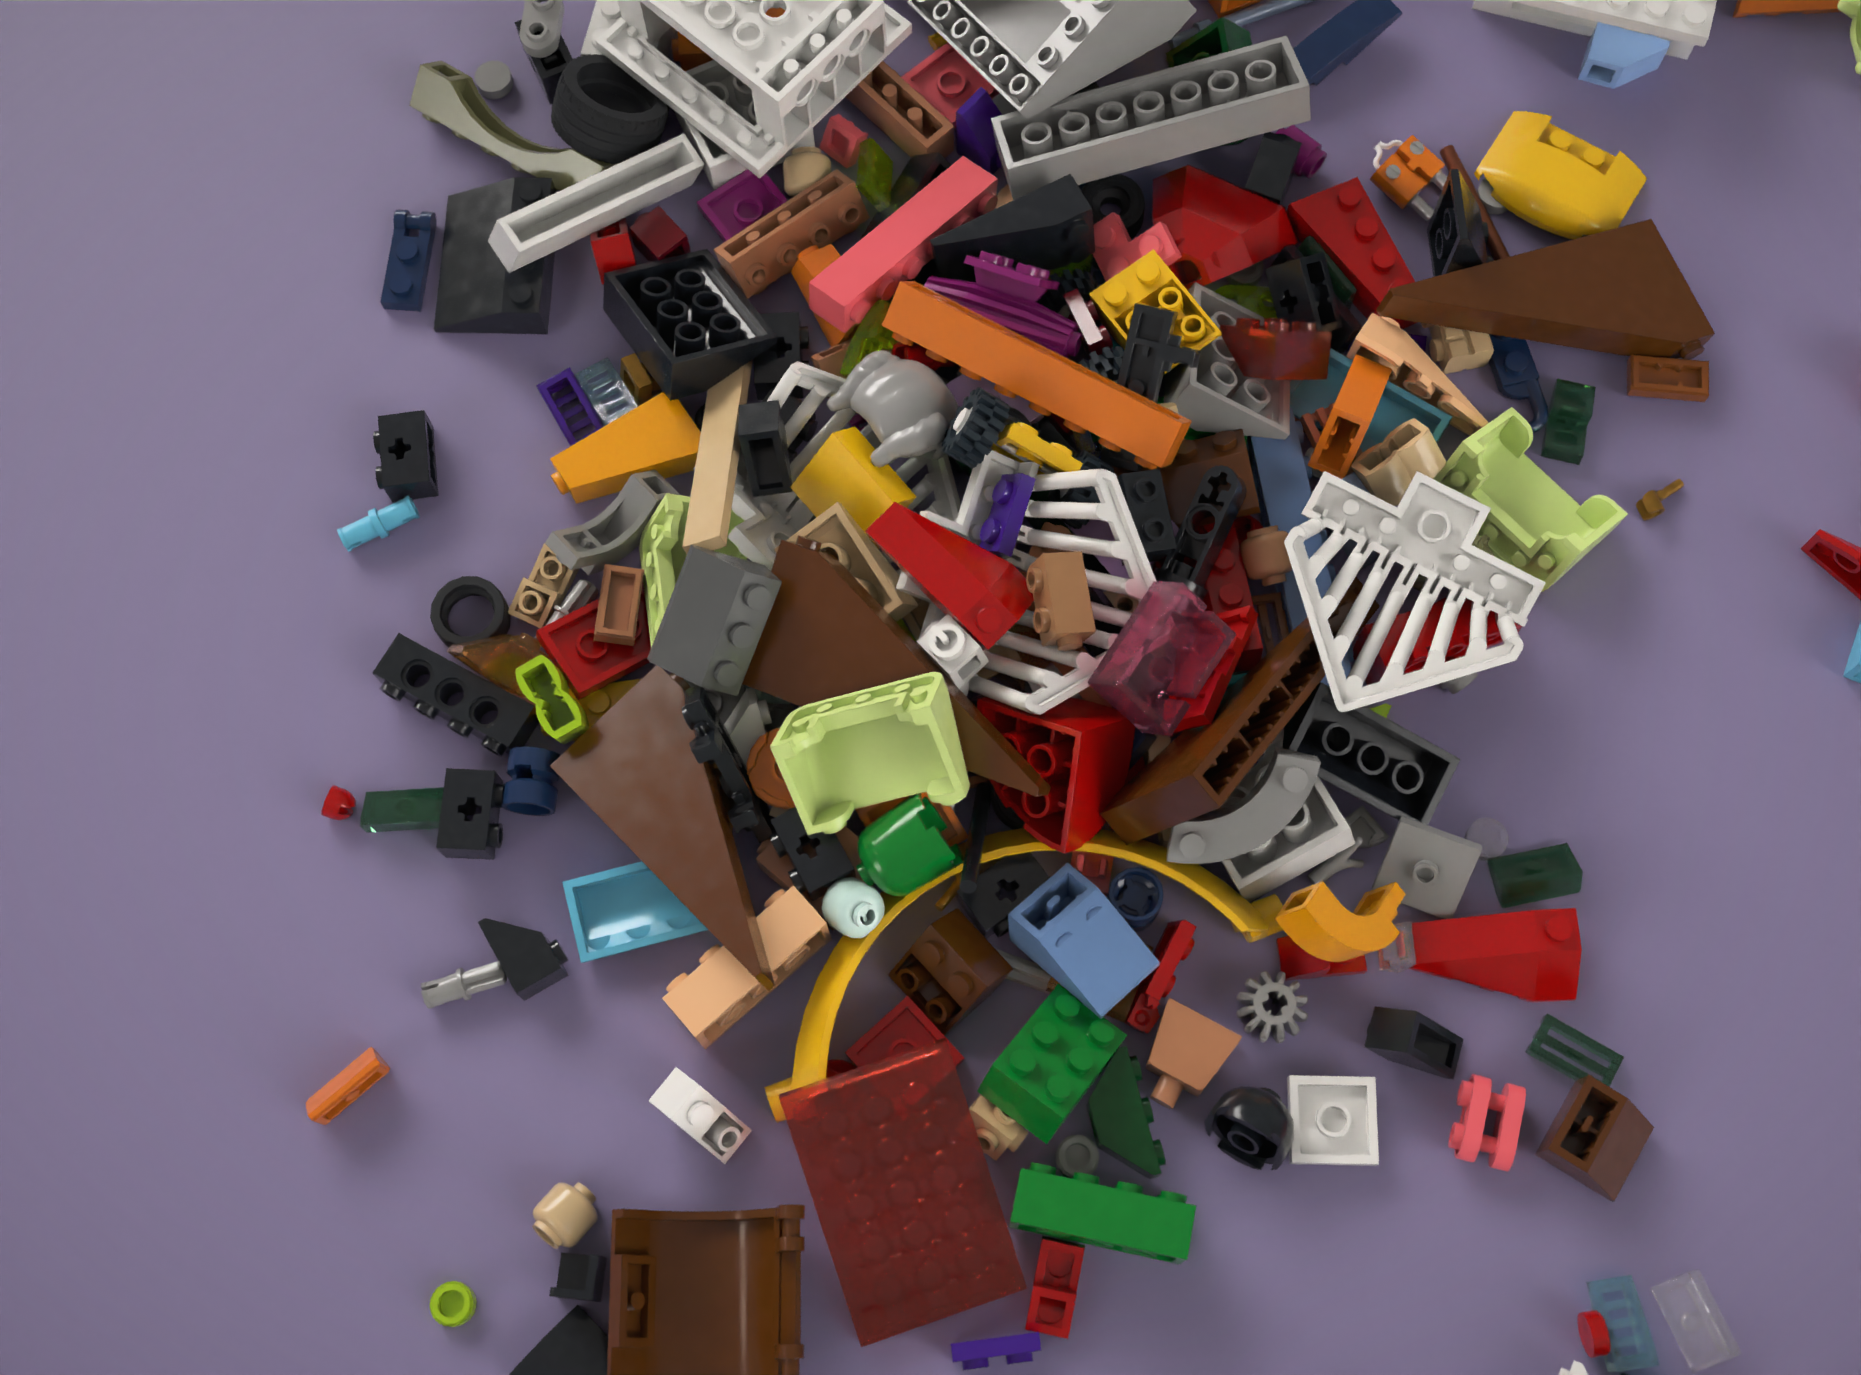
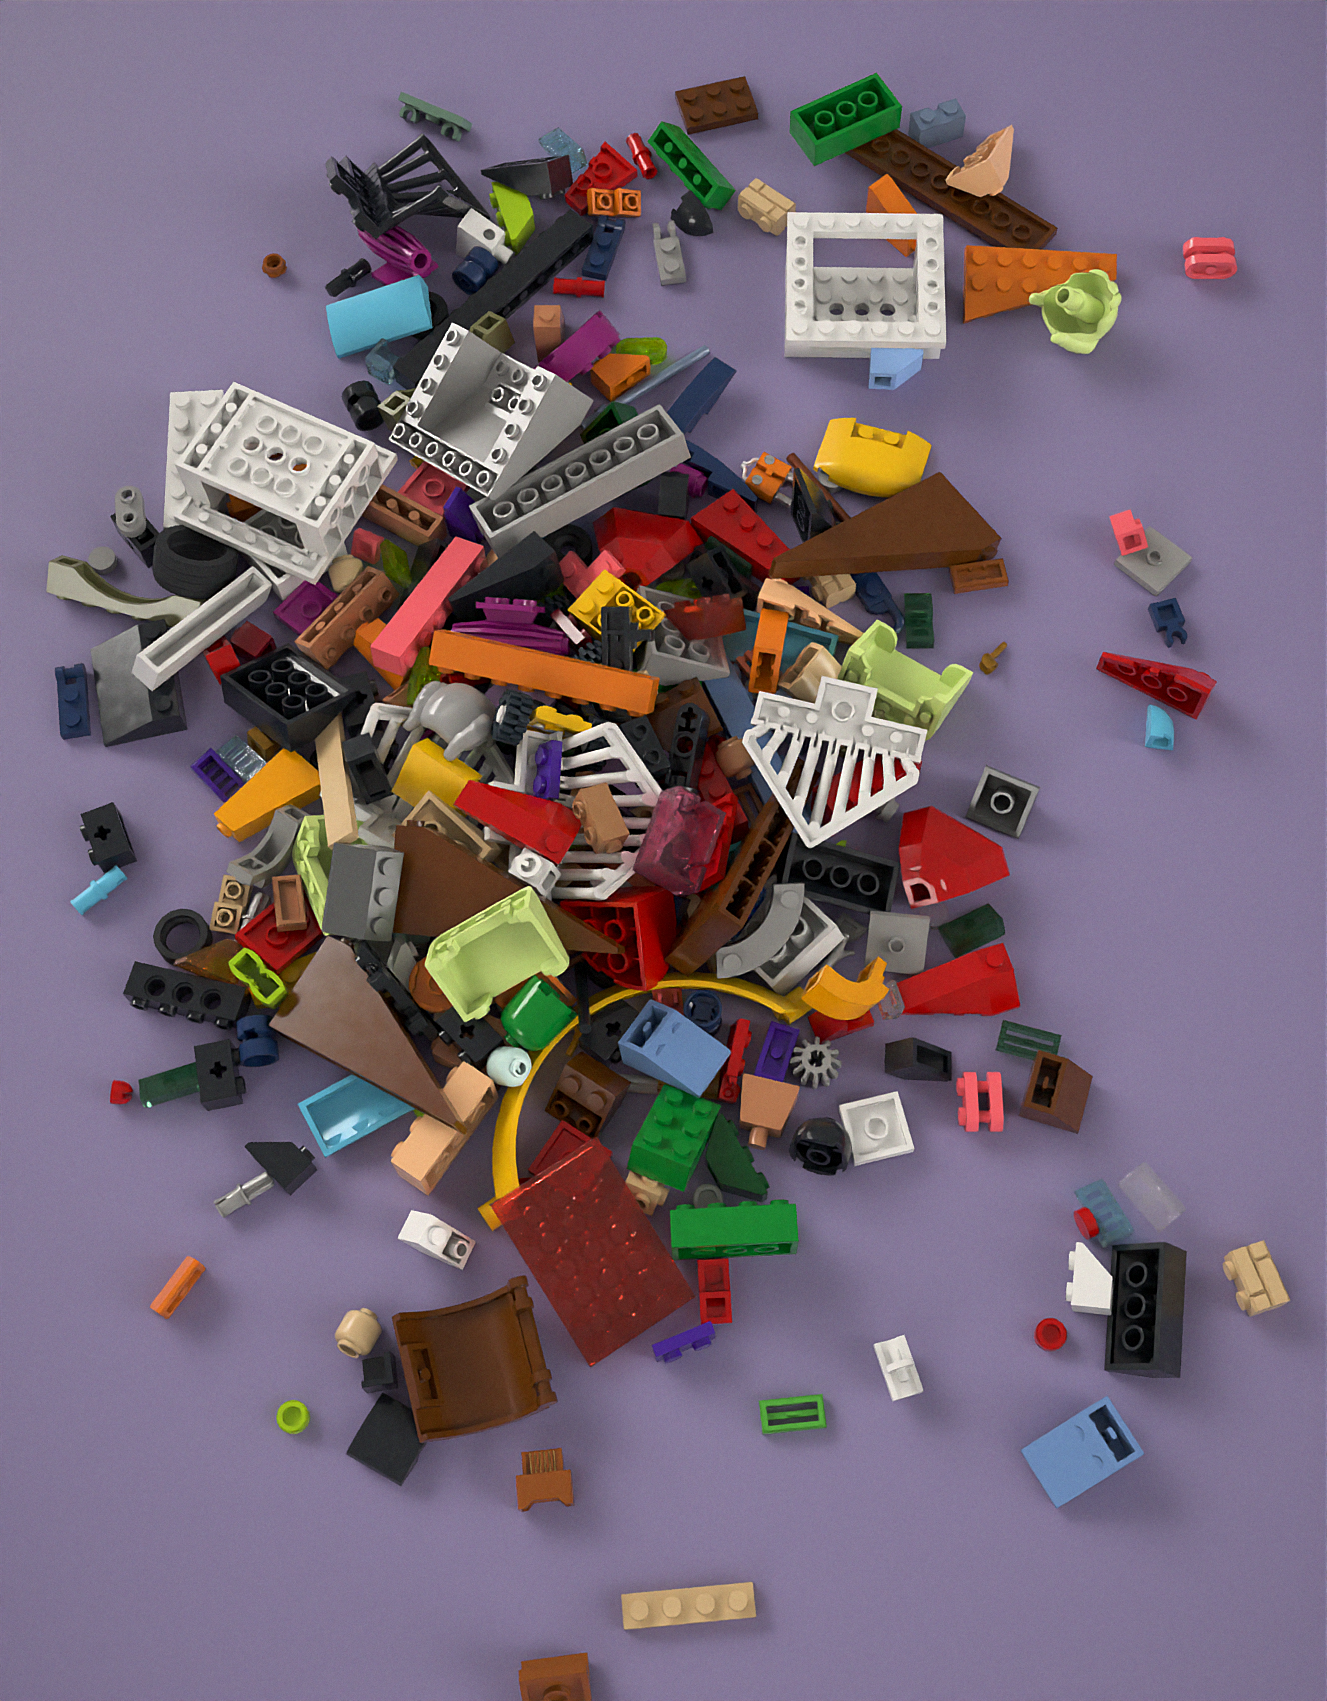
camera: 15 degrees left, 5 degrees down
(1221, 978) = (776, 1052): none -> dark purple plate
(1343, 157) = (720, 477): none -> dark blue slope
(1524, 767) = (945, 857): none -> red brick
(1623, 706) = (1002, 801): none -> dark grey slope

